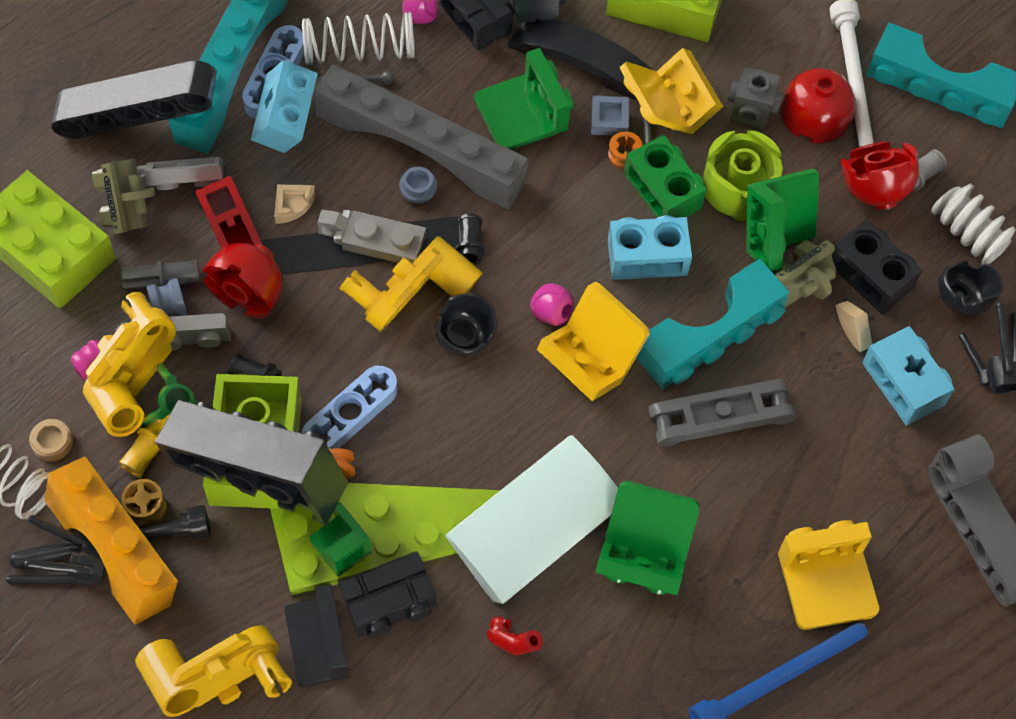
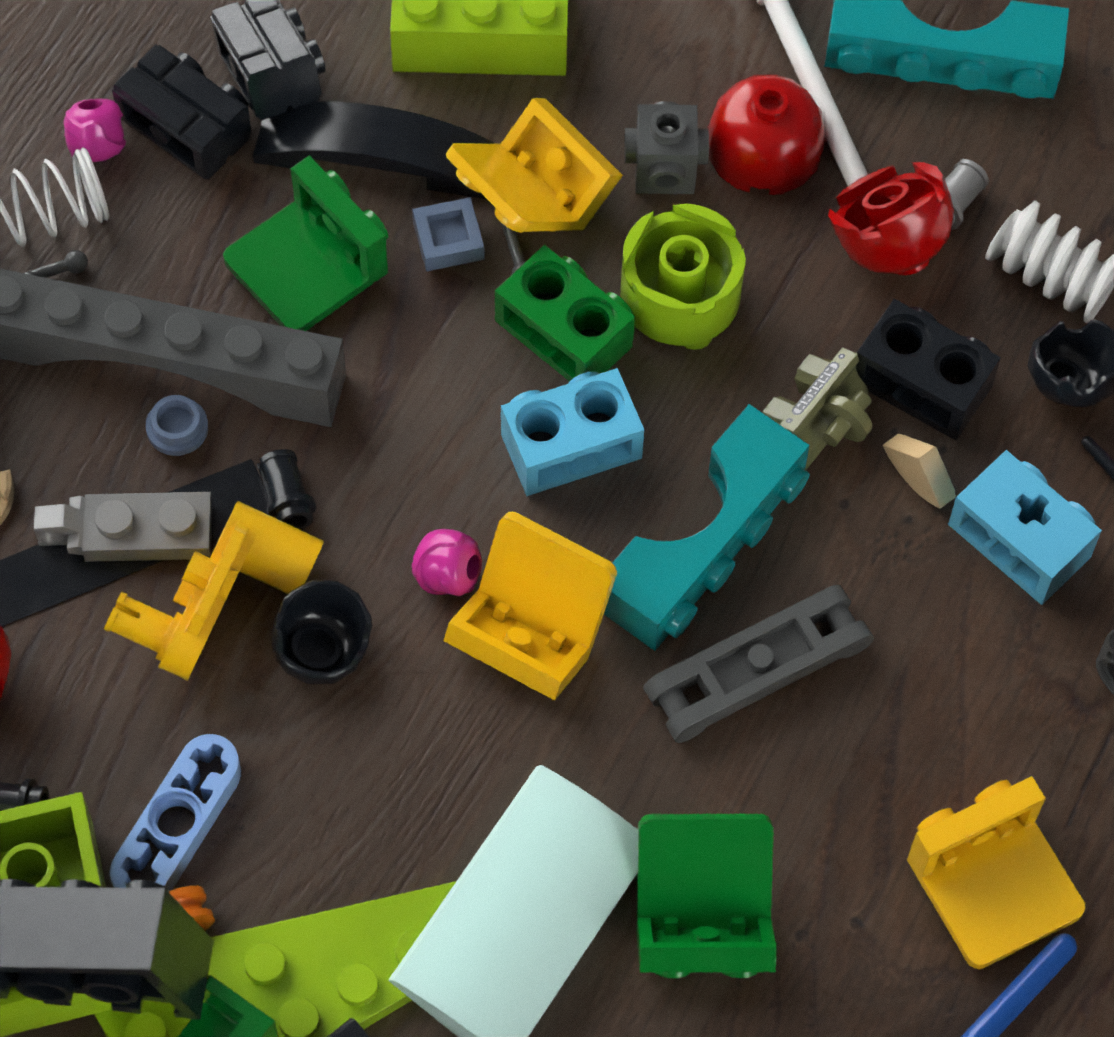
camera: 15 degrees left, 0 degrees up
(624, 139) = (482, 266): orange bush -> none
(781, 214) = (760, 326): green bracket -> none

